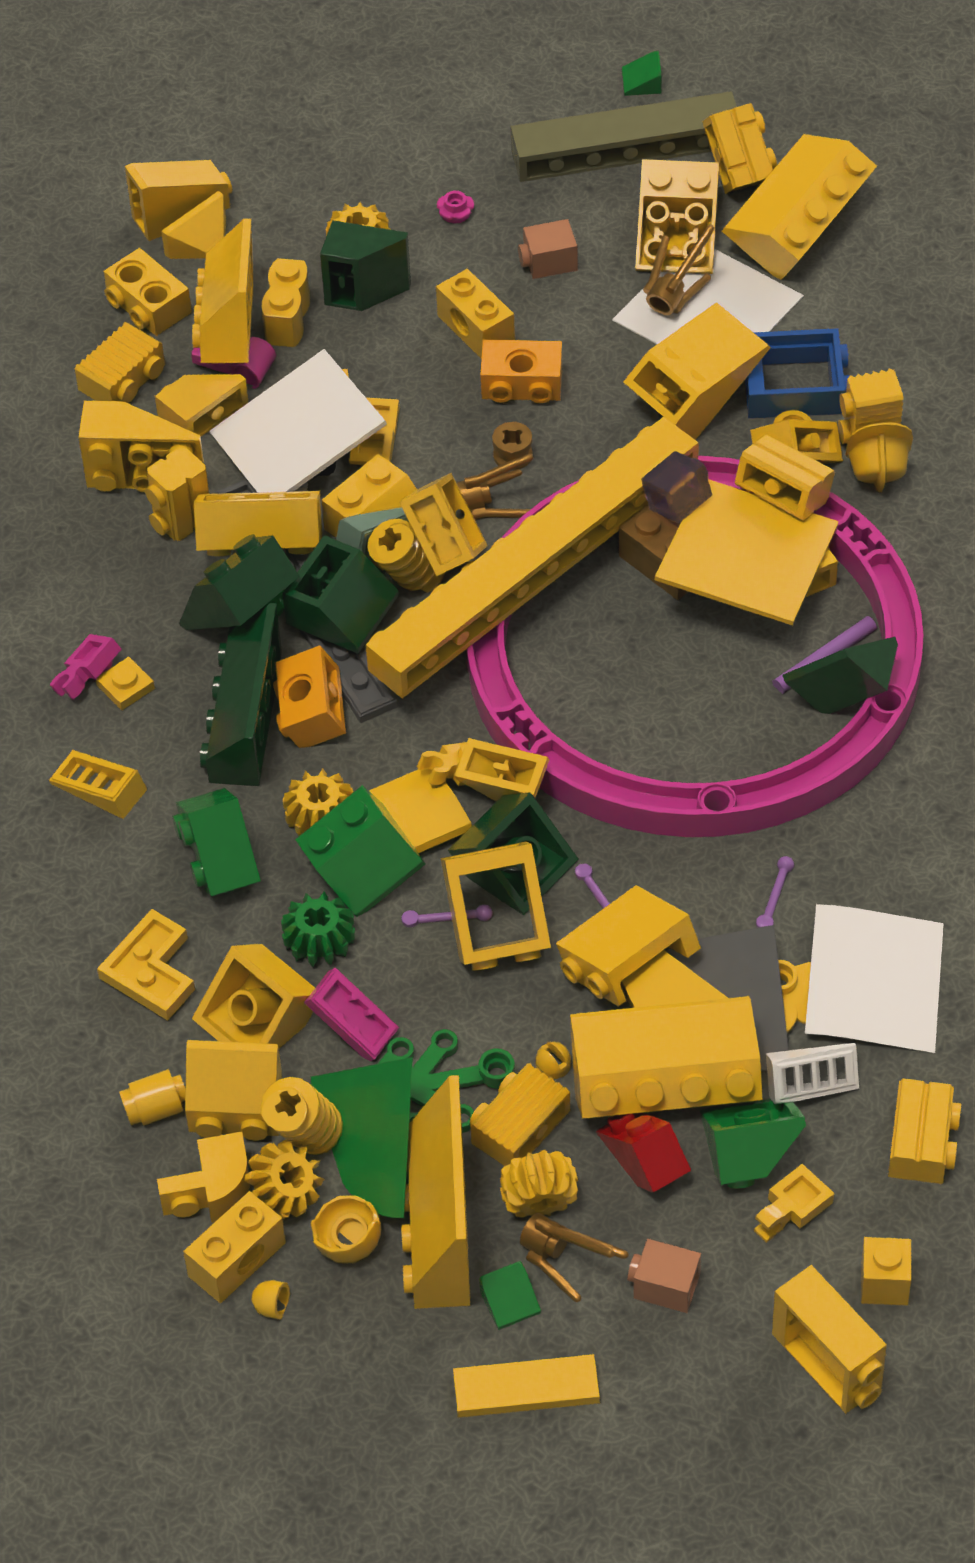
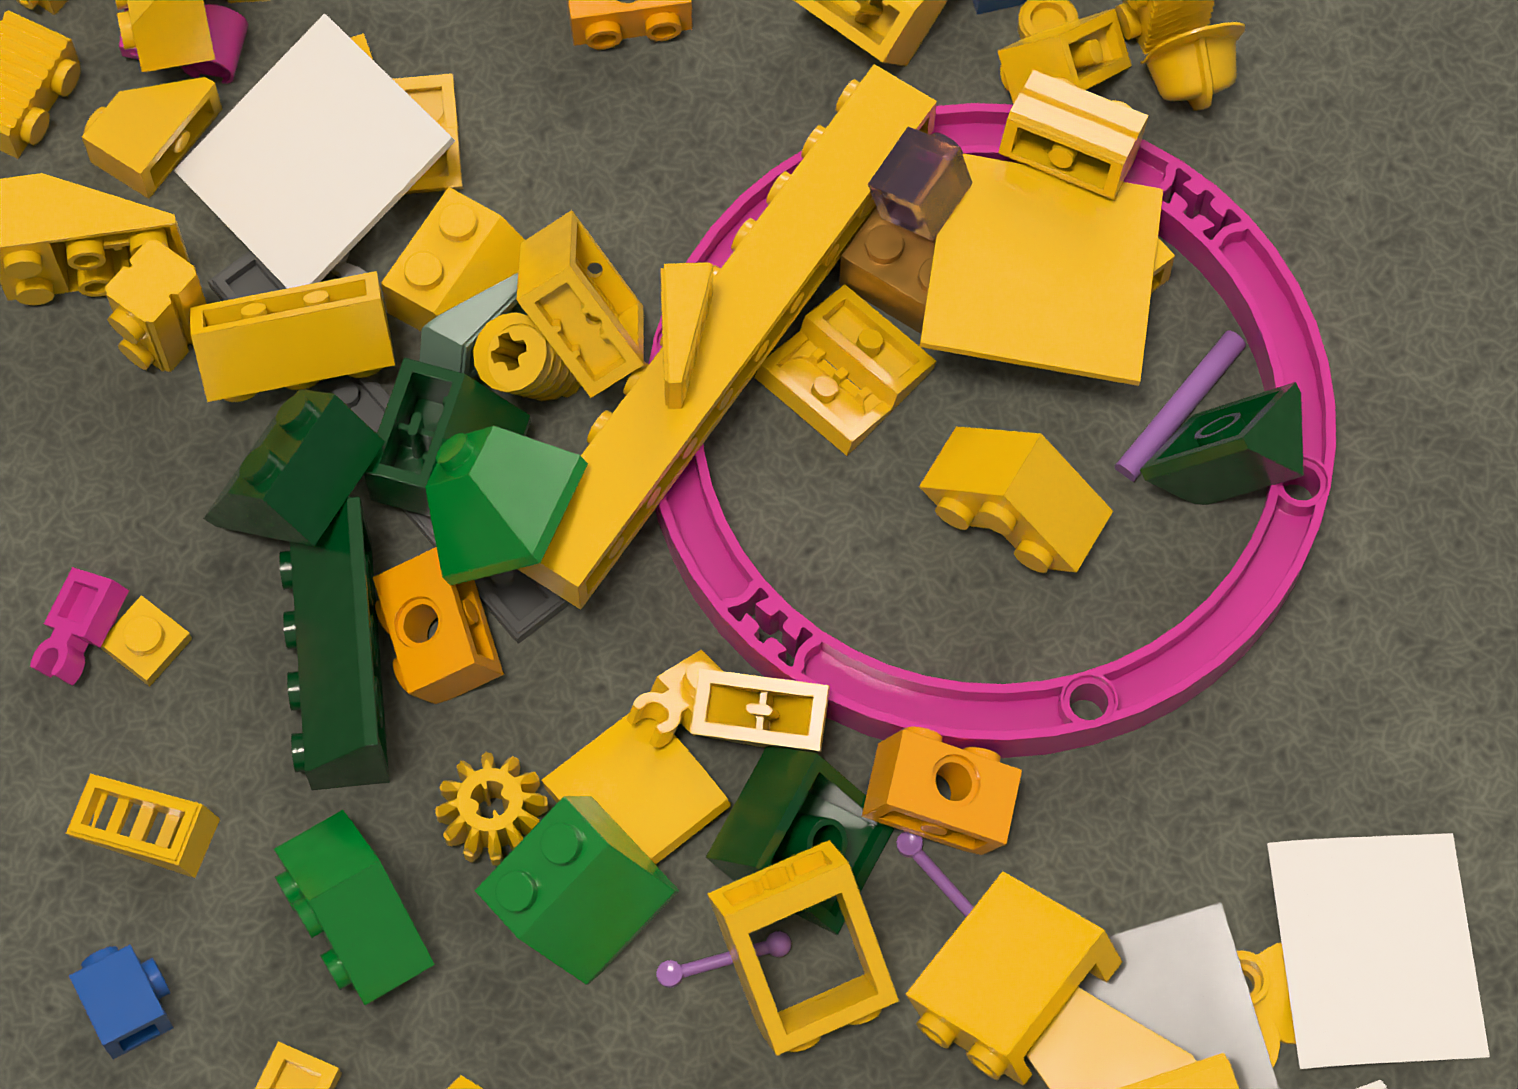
camera: 15 degrees left, 15 degrees up
(61, 871) = (122, 998): none -> blue brick
(318, 929) = (545, 1048): green gear -> none
(360, 616) = (497, 501): none -> green slope
(477, 492) = (607, 218): pearl gold plant -> none
(504, 529) = (684, 308): none -> yellow slope
(511, 442) = (643, 141): pearl gold wheel -> none
(616, 857) = (906, 795): none -> light orange brick
(621, 589) = (863, 350): none -> yellow slope
(703, 676) = (1018, 490): none -> yellow brick
(785, 865) = (1195, 880): medium lavender hinge -> none

